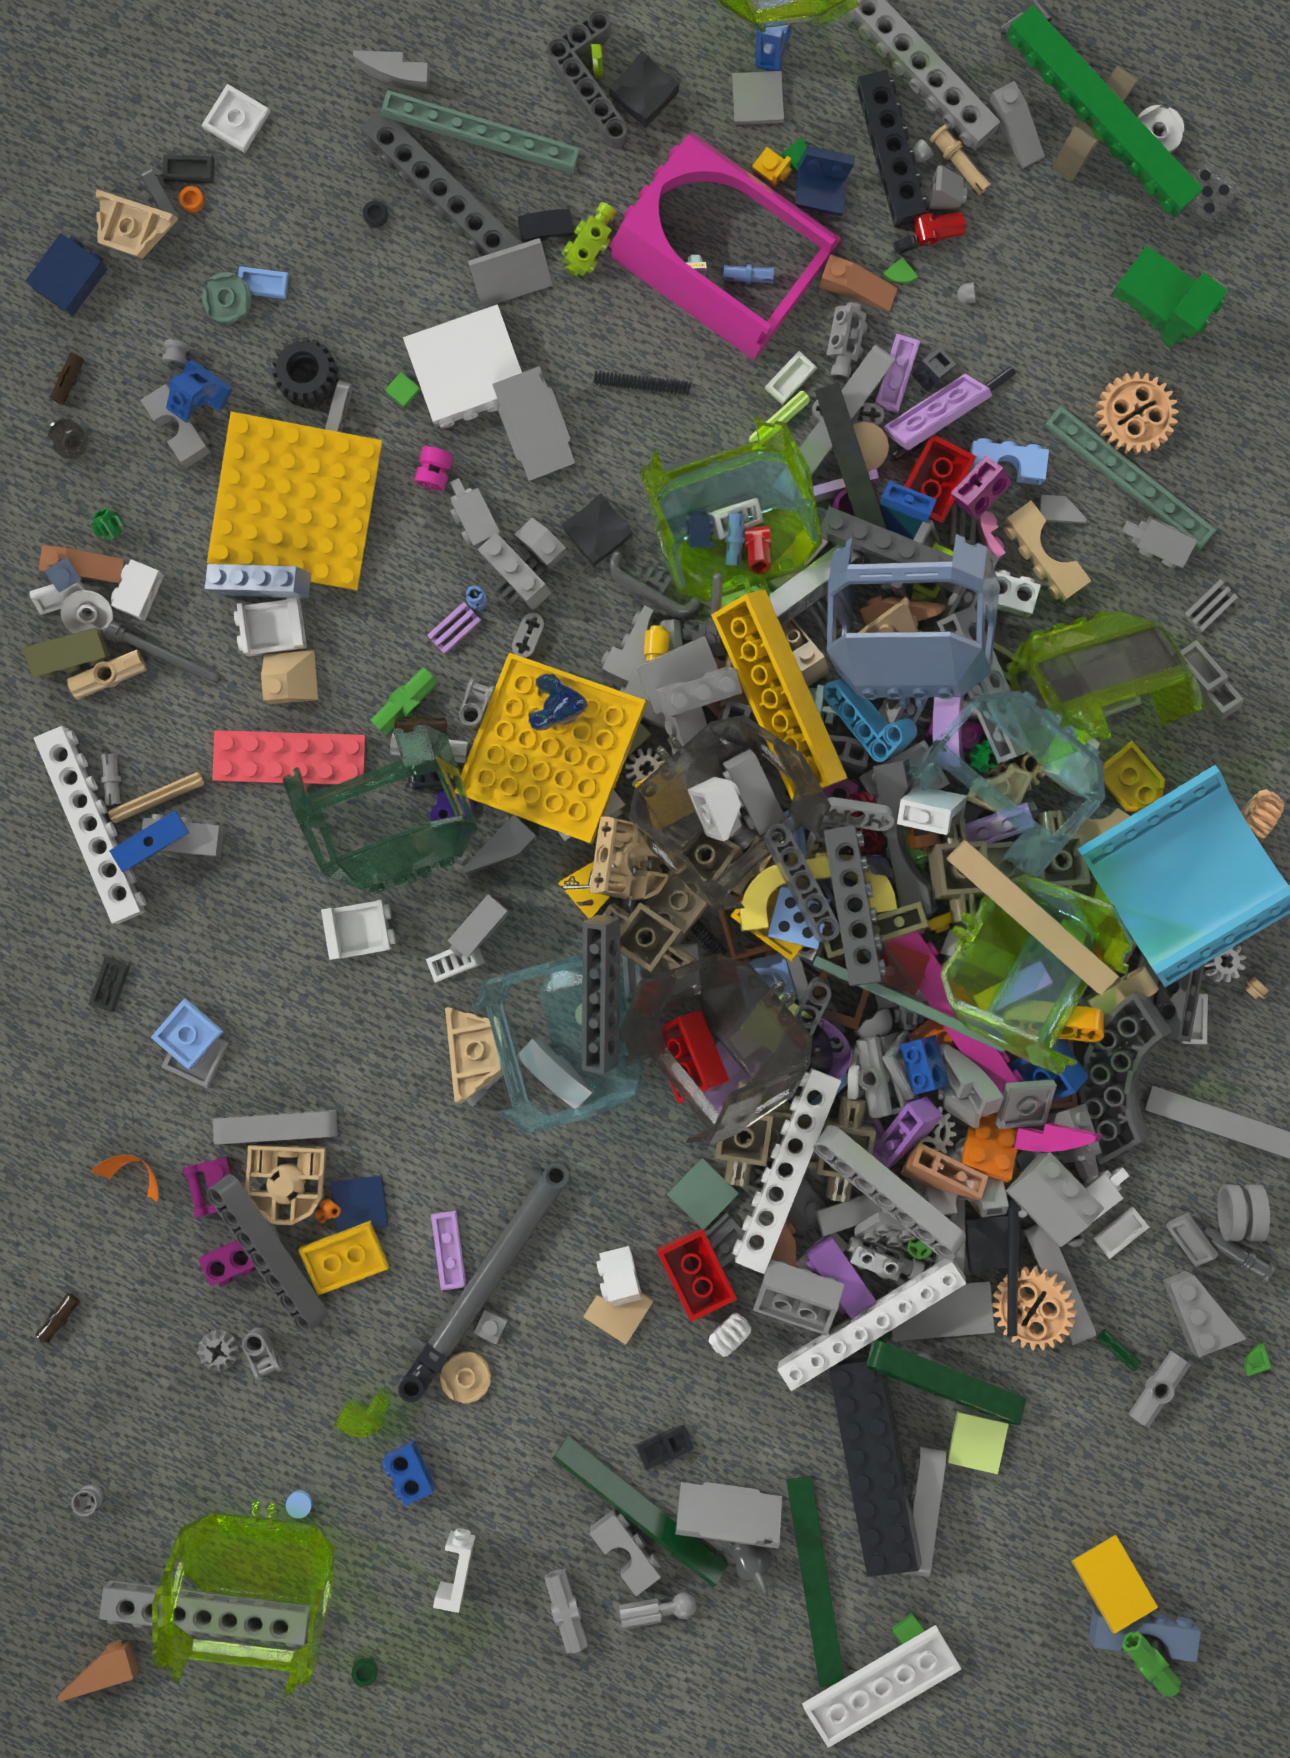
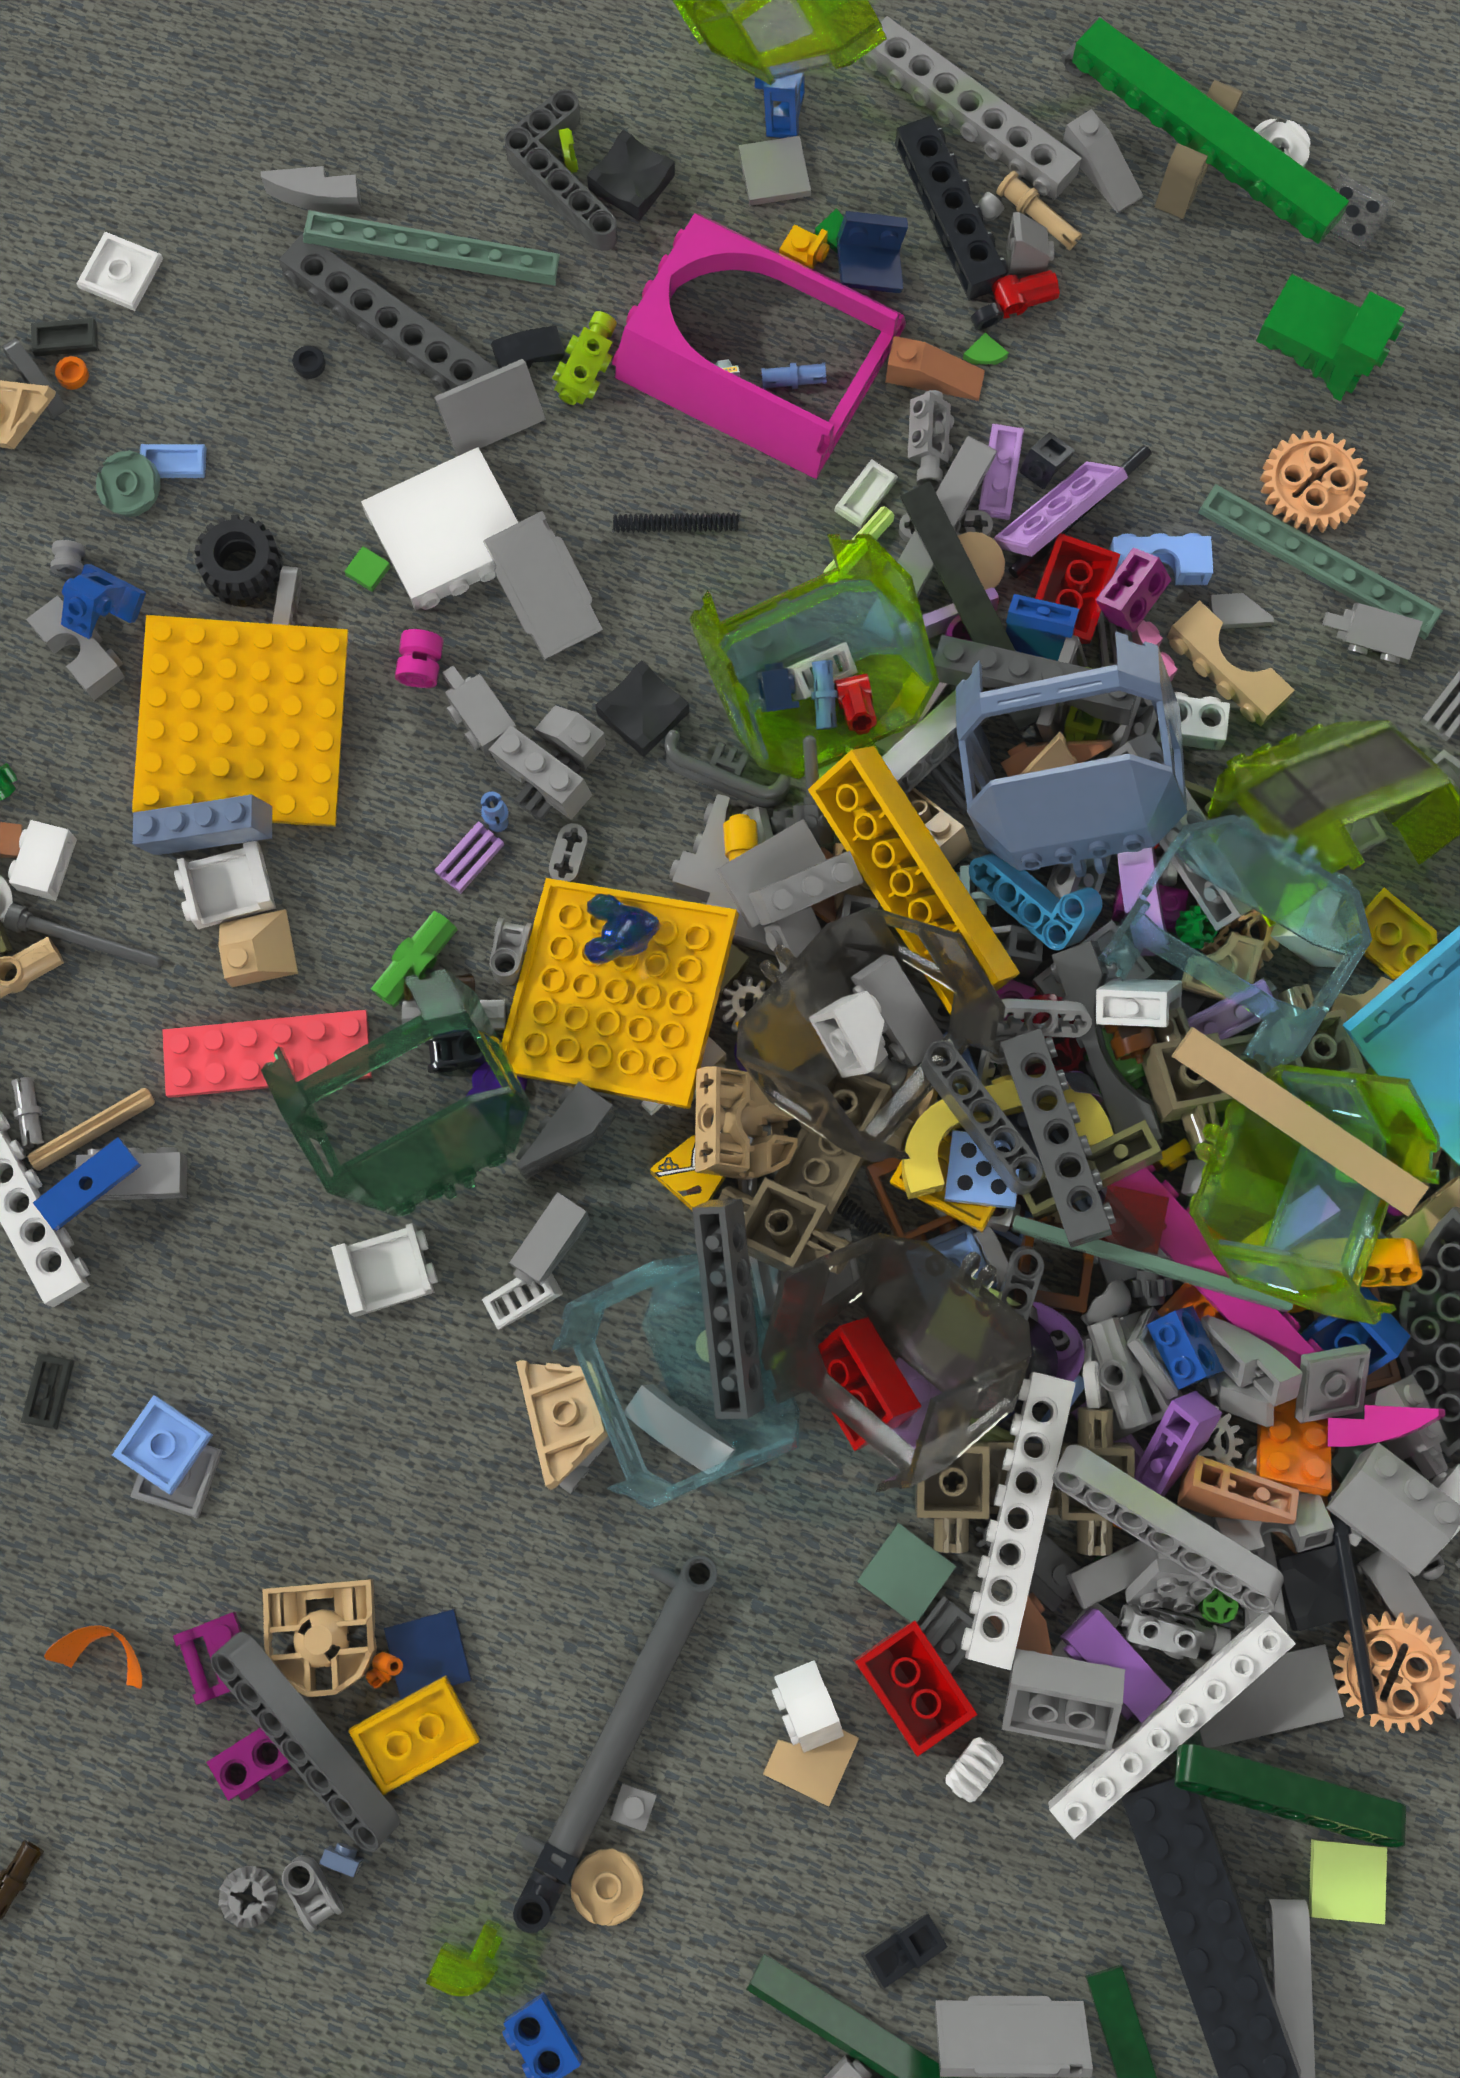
camera: 10 degrees left, 10 degrees down
(275, 1127) = (297, 1559): light grey beam -> none
(285, 1335) = (342, 1859): none -> sand blue plate
(448, 1250) = (561, 1704): lavender tile -> none
(966, 293) = (1073, 365): light grey hinge -> none

